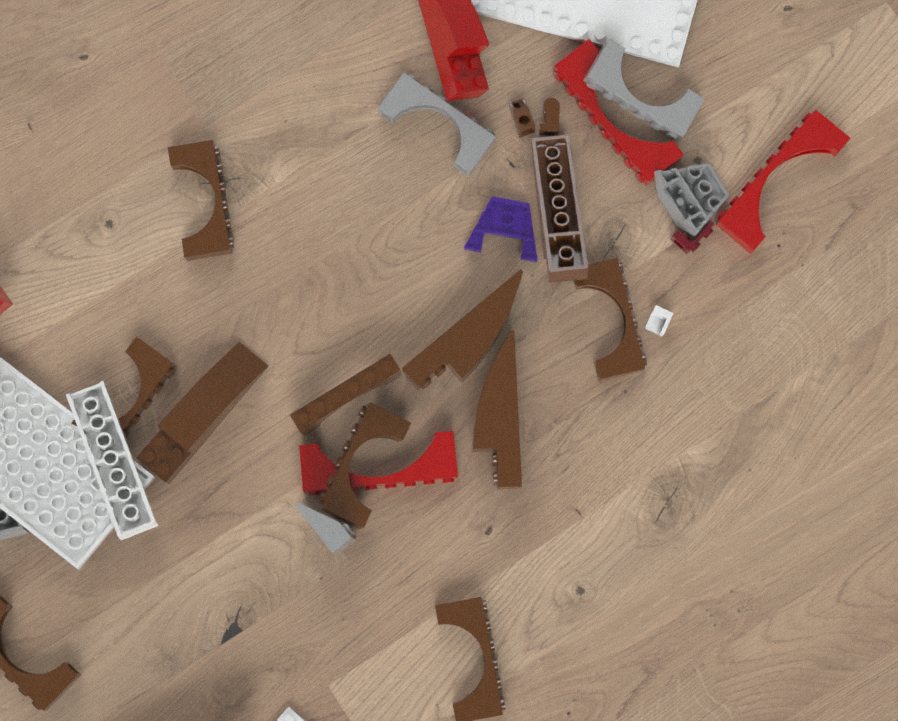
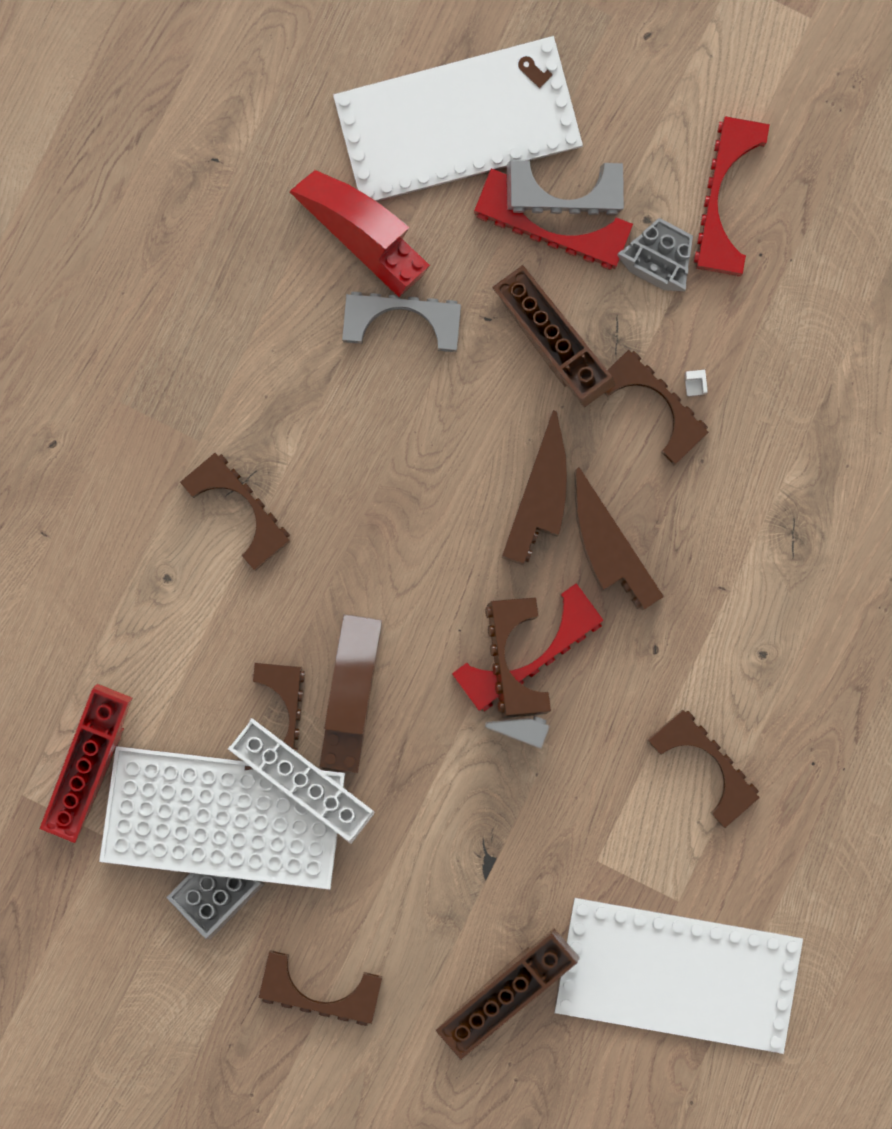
camera: 25 degrees left, 5 degrees up
(376, 375) = (466, 605): reddish brown arch -> none
(508, 220) = (513, 371): dark purple wing -> none
(522, 117) = (472, 272): reddish brown leg -> none
(551, 110) = (496, 253): reddish brown leg -> none
(682, 239) = (675, 300): dark red bracket -> none

